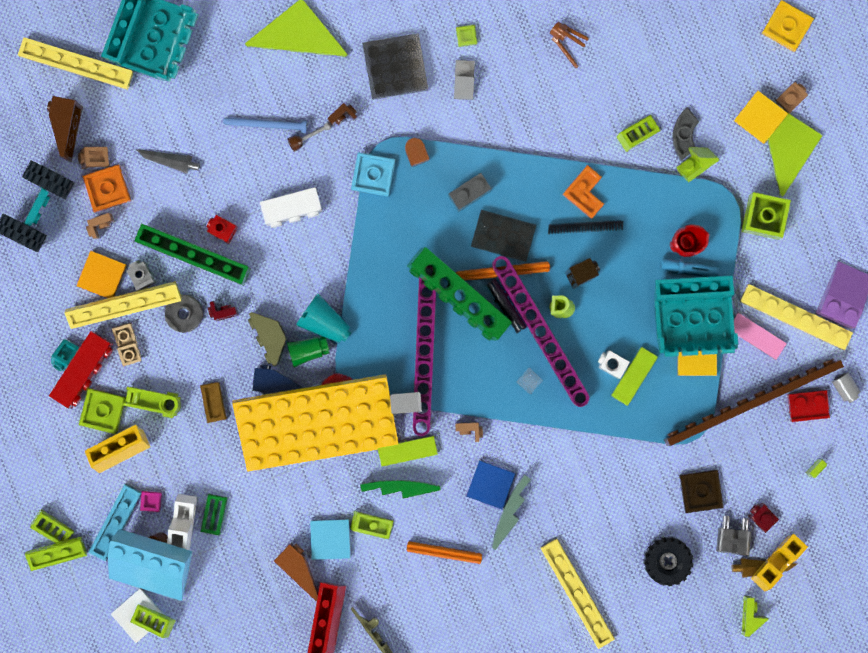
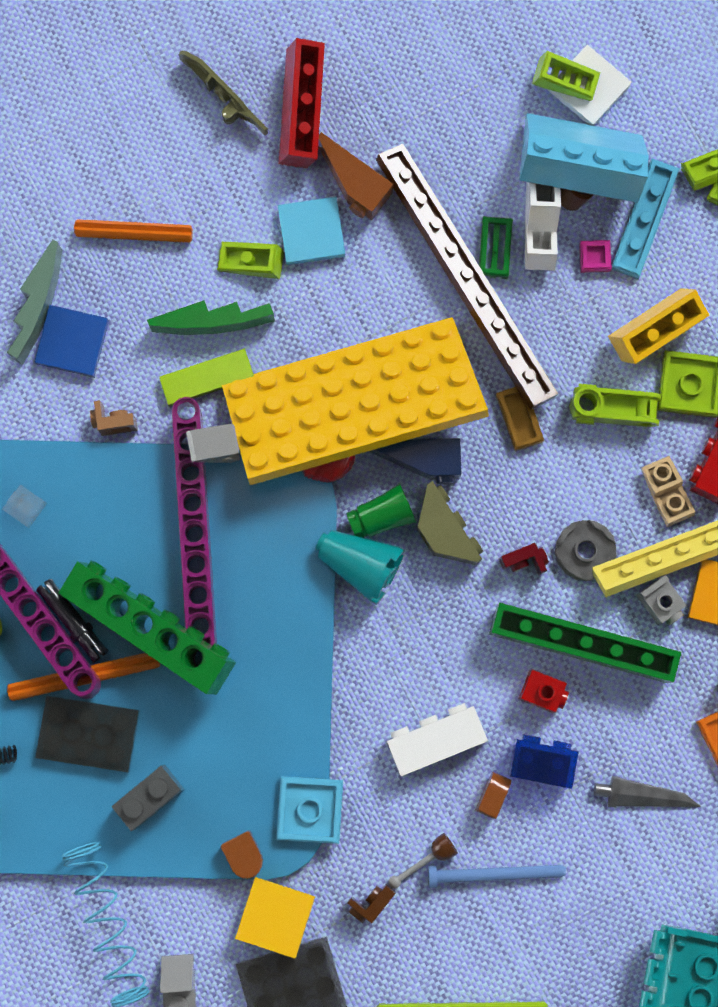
camera: 175 degrees right, 5 degrees down
(227, 185) = (542, 762): none -> clear blue brick
(235, 497) = (466, 277): none -> plate
(260, 170) = (493, 795): none -> dark orange piece
(401, 113) = (275, 917): none -> yellow tile
(516, 160) = (130, 995): none -> medium azure piece

